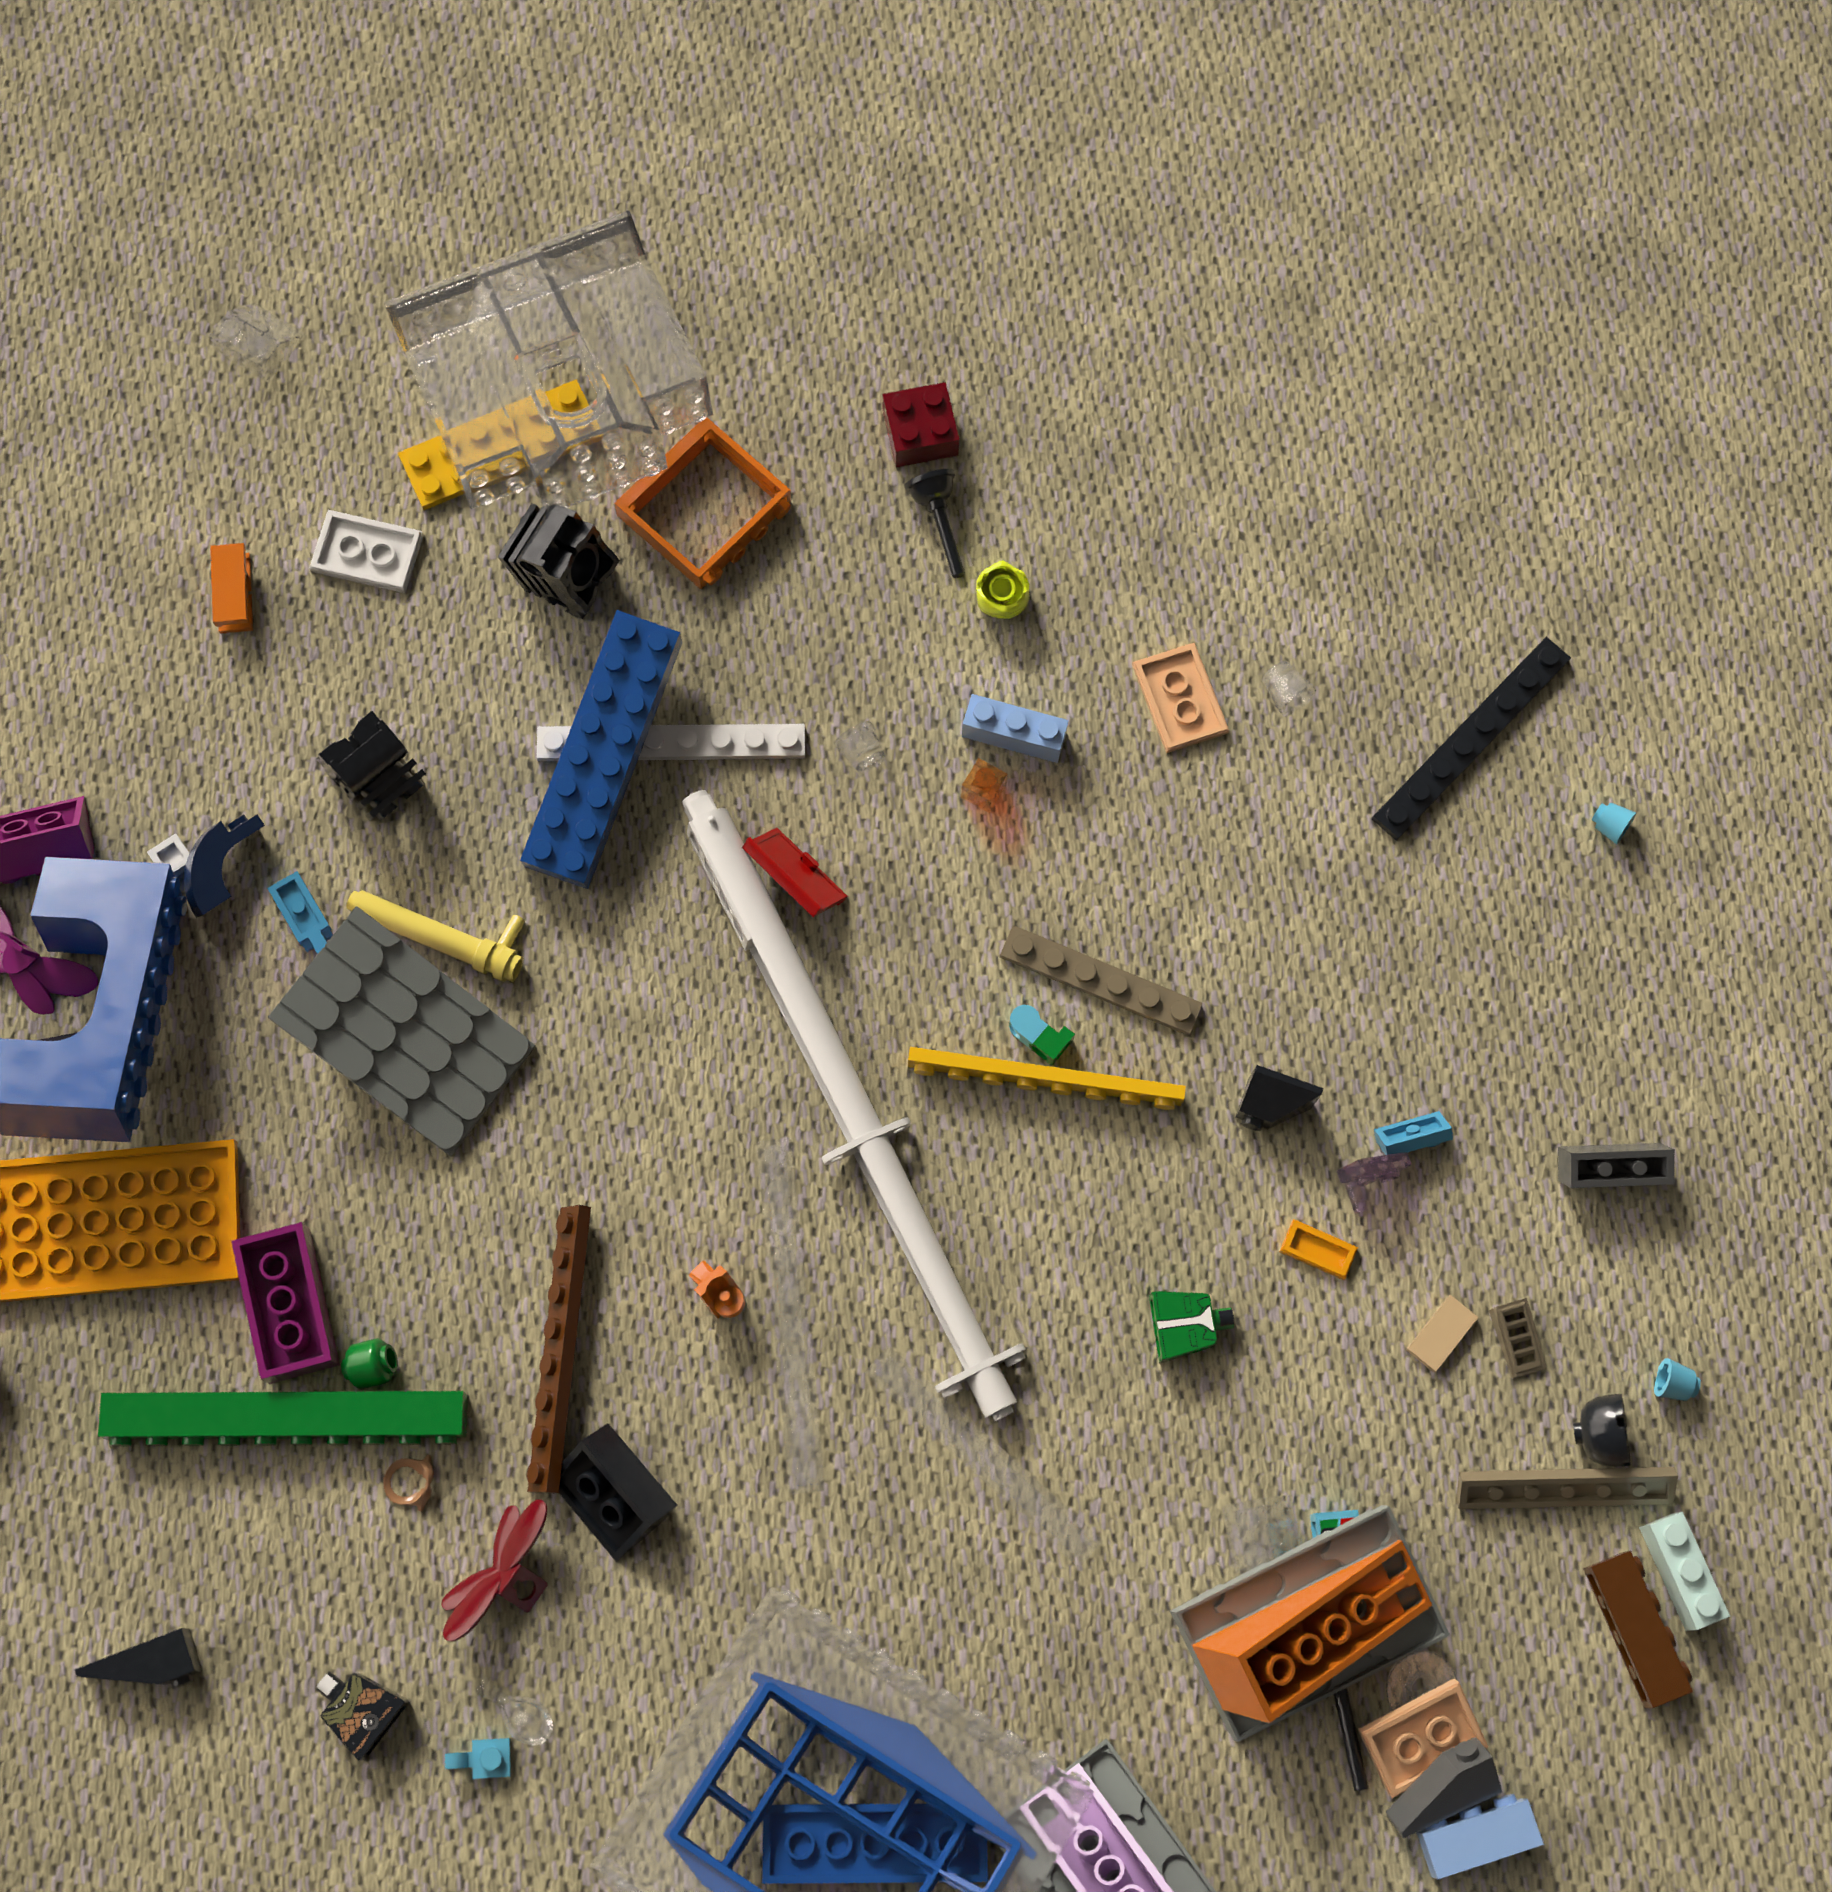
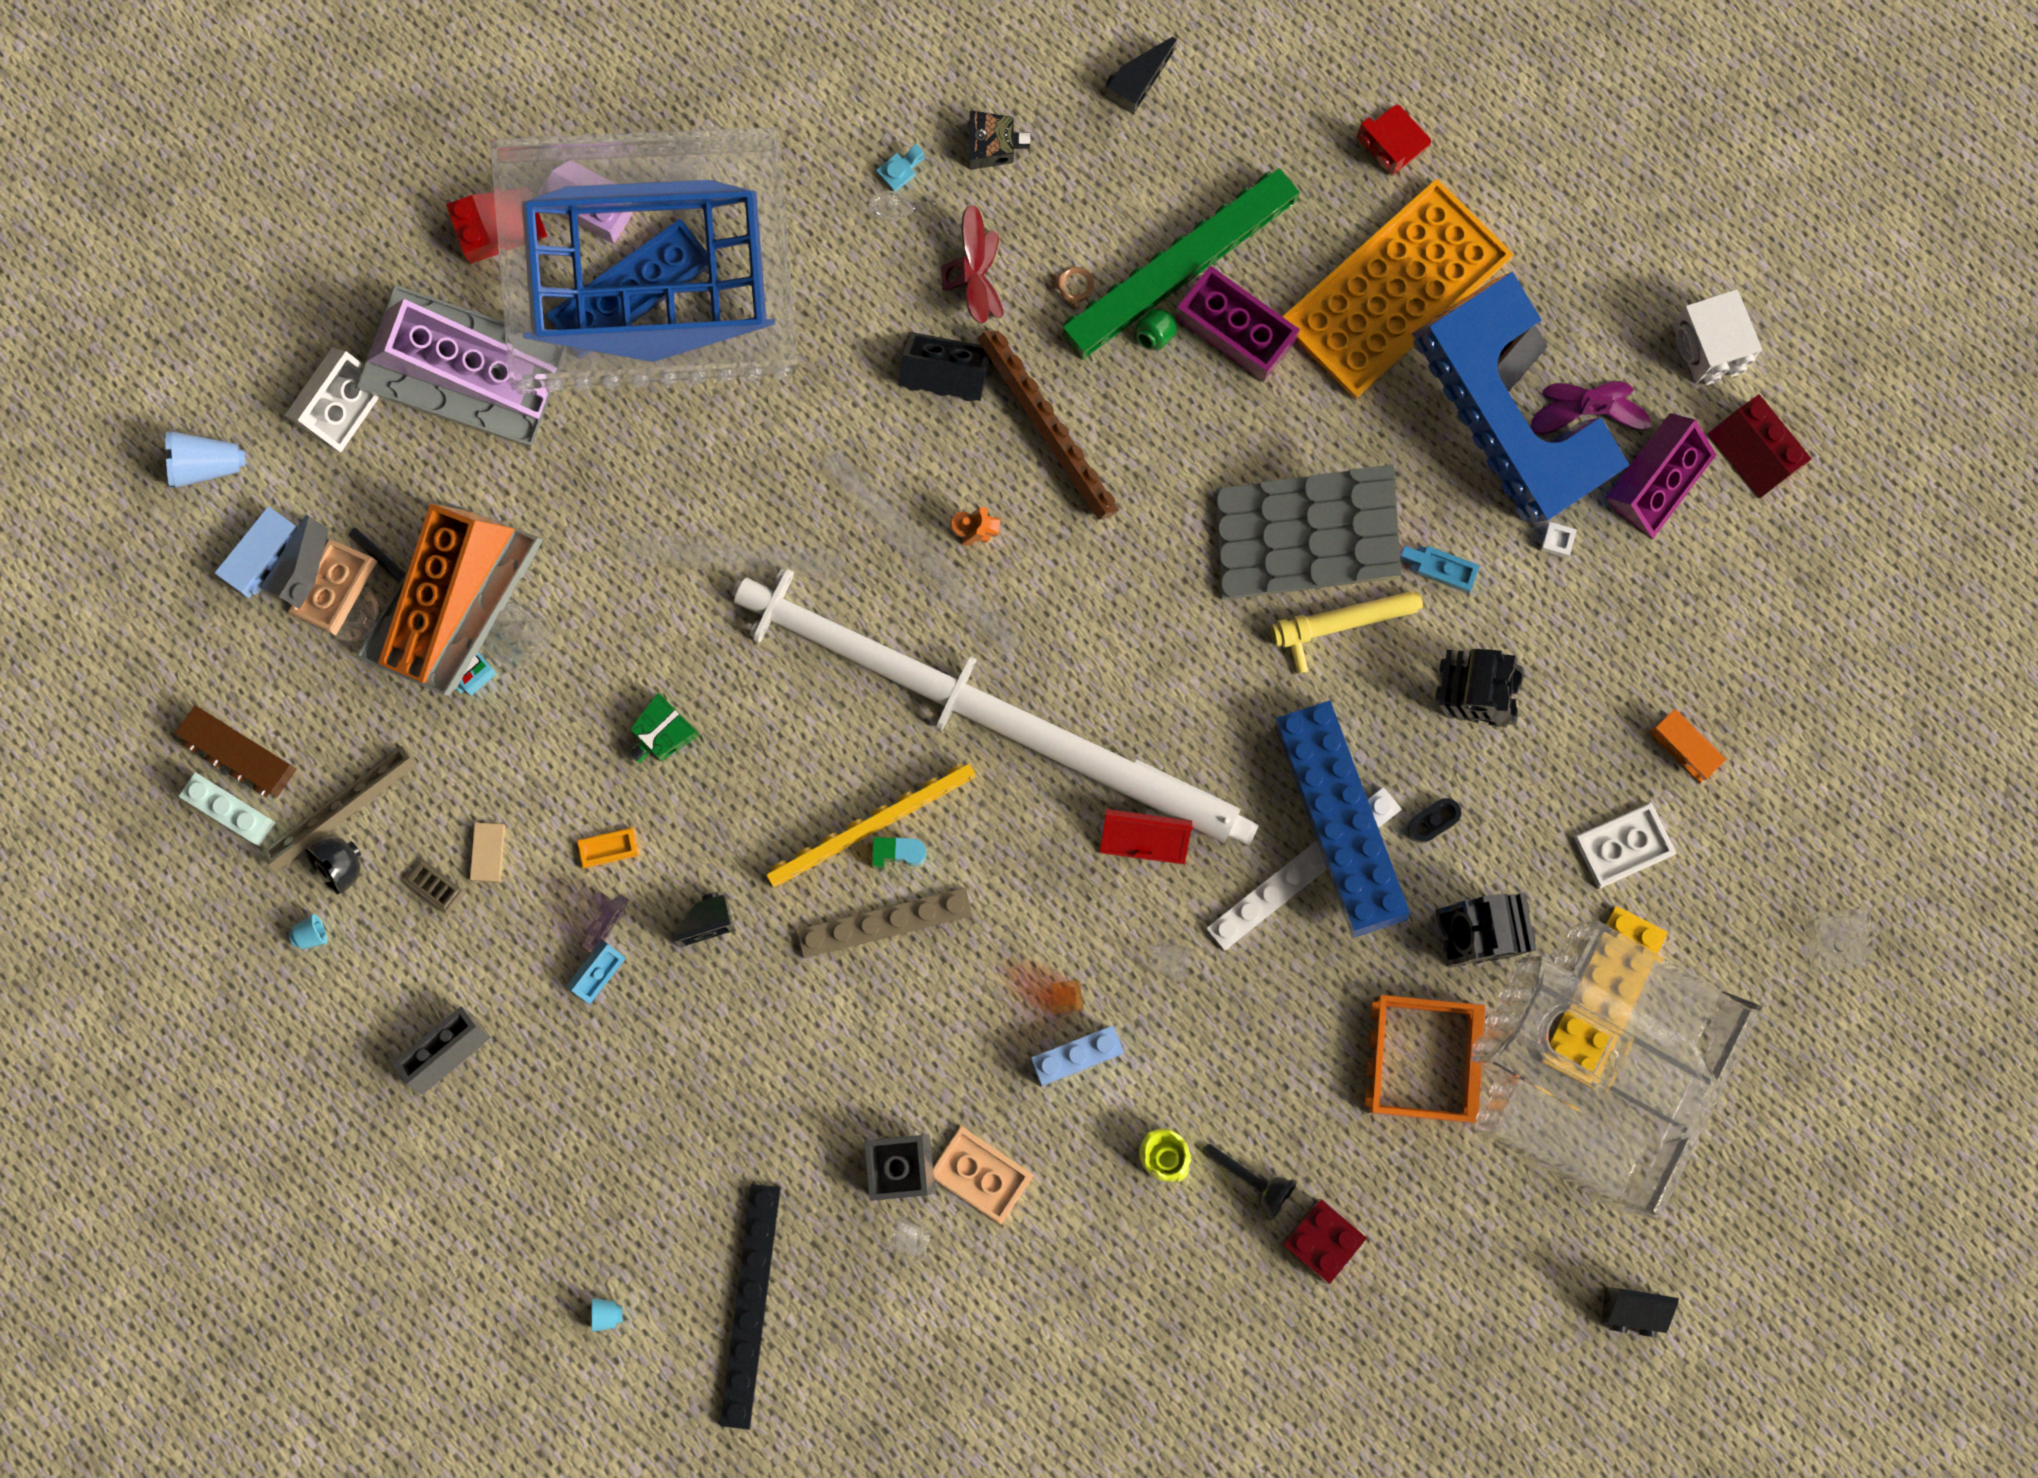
camera: 140 degrees right, 5 degrees up
(204, 864) = (1533, 552): dark blue arch -> none
(518, 692) = (1434, 821): none -> black plate
(699, 186) = (1638, 1310): none -> black slope
(1252, 747) = (899, 1167): none -> dark grey brick

